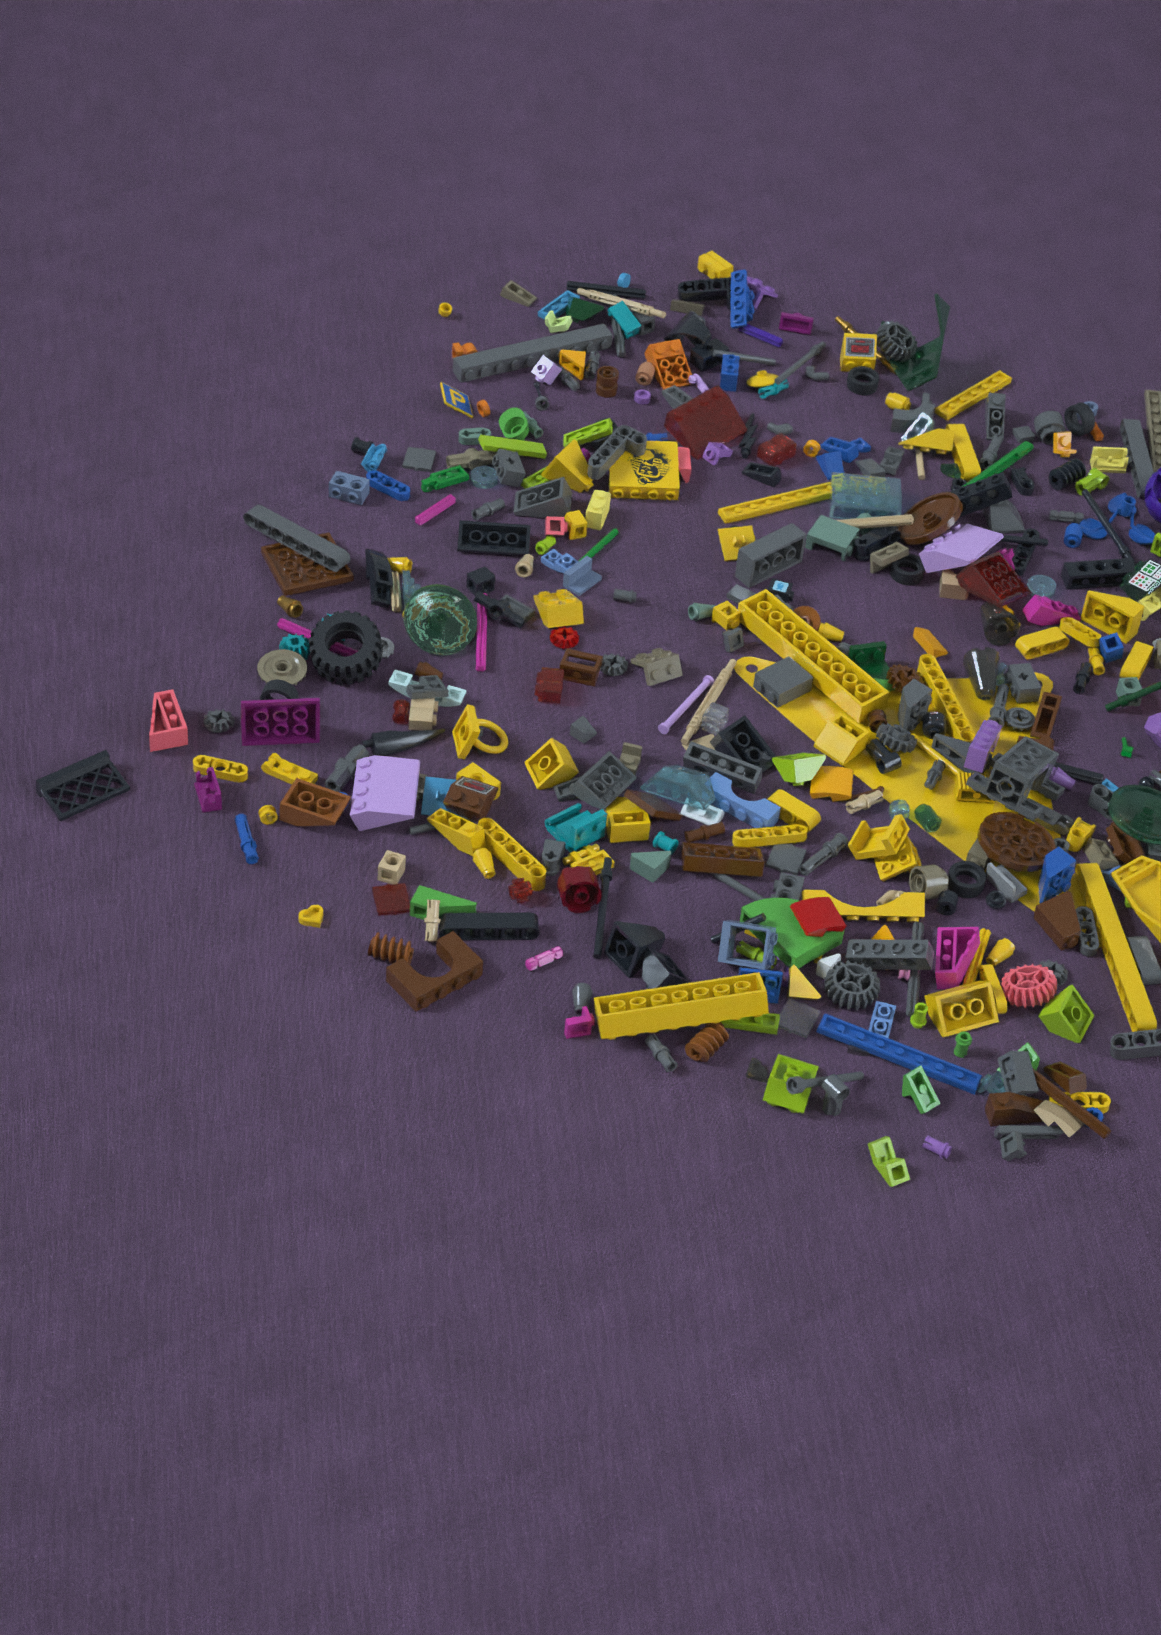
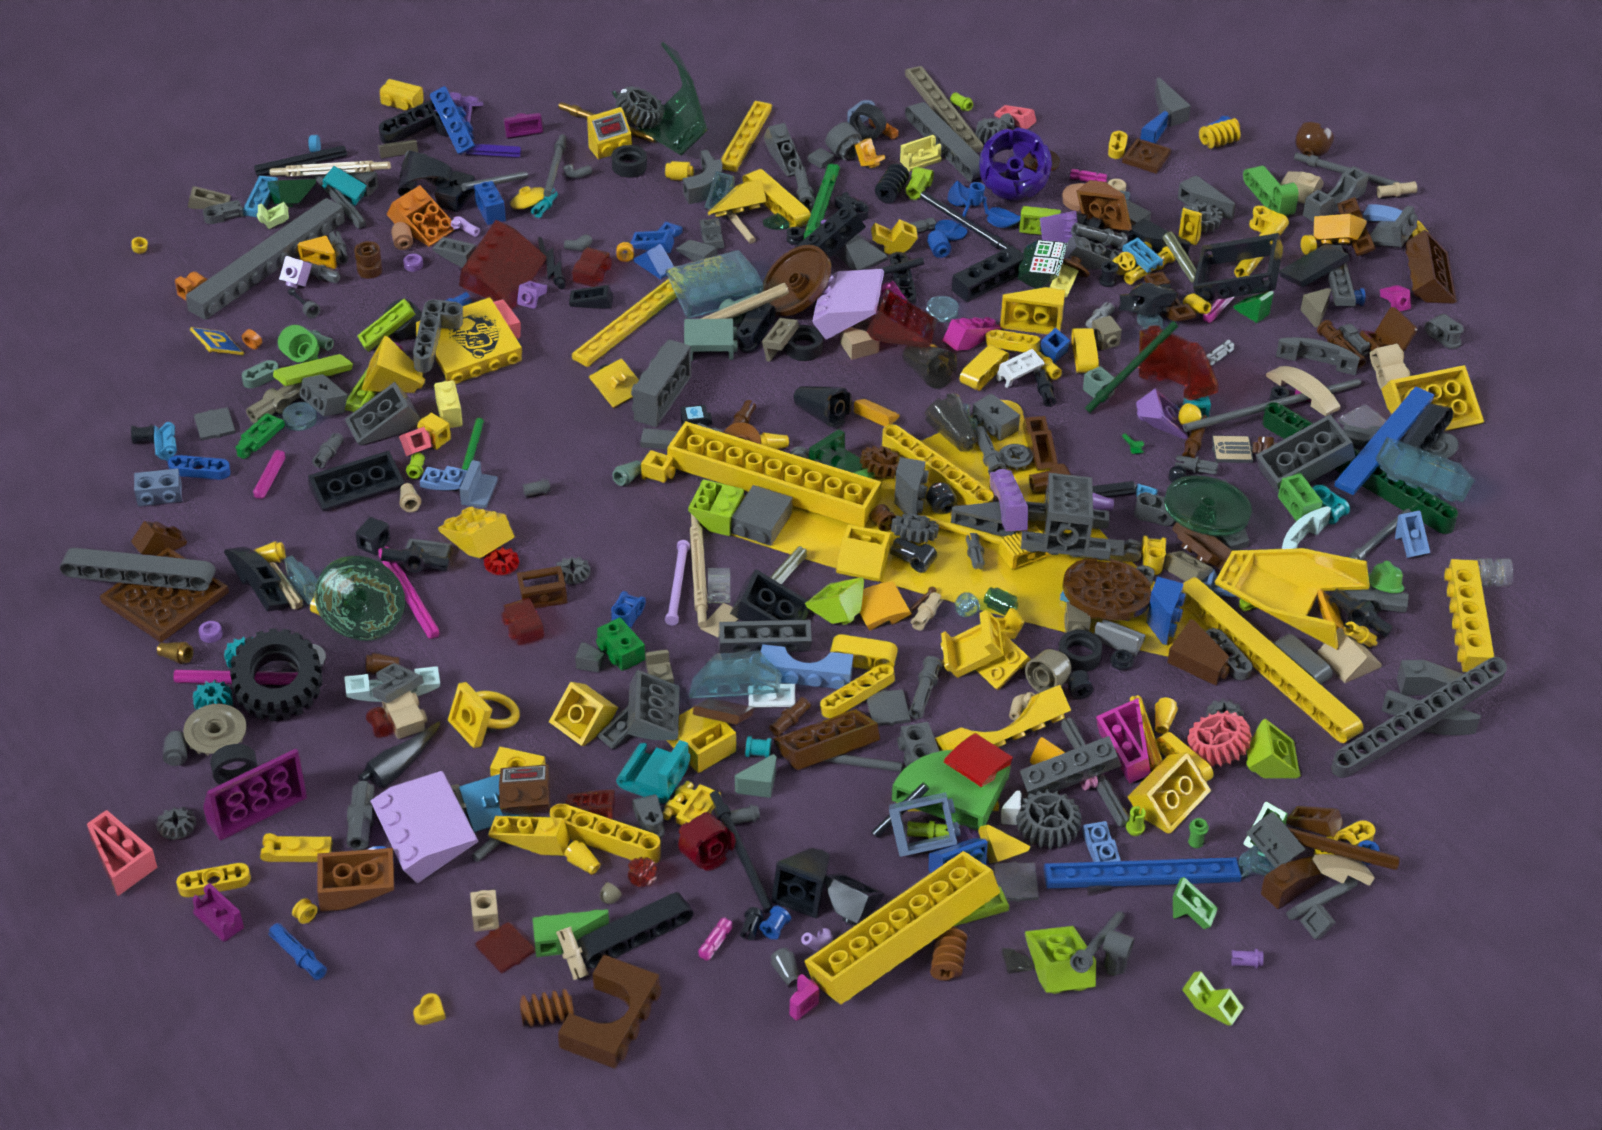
camera: 25 degrees left, 0 degrees up
(74, 775) = (43, 967): black fence -> none
(247, 671) = (175, 749): none -> dark grey brick
(323, 602) = (210, 631): none -> medium lavender tile
(324, 521) = (155, 537): none -> reddish brown slope
(487, 895) = (609, 893): none -> dark tan hinge
(522, 307) = (224, 211): none -> dark grey piece
(526, 831) = (604, 802): none -> clear red slope
(581, 955) = (753, 917): none -> black pin
(594, 966) = (775, 922): none -> blue bush
(611, 729) = (620, 644): none -> green brick
(611, 989) = (819, 942): none -> lavender arm
(623, 885) = (745, 815): none -> dark grey pin
(632, 709) = (628, 608): none -> blue piece
(659, 665) = (625, 550): dark tan bracket -> none
(661, 1053) = (908, 989): dark grey pin -> none
(733, 639) = (680, 490): dark grey tile -> none
(750, 658) = (715, 506): none -> lime slope
(779, 727) = (789, 564): none -> axle
(823, 603) = (744, 413): none -> reddish brown pin
(890, 620) = (825, 403): none -> black cone
(920, 838) = (1011, 623): none -> yellow bracket
(1036, 518) = (896, 240): none -> yellow brick
(1070, 652) = (1019, 366): none -> white hinge

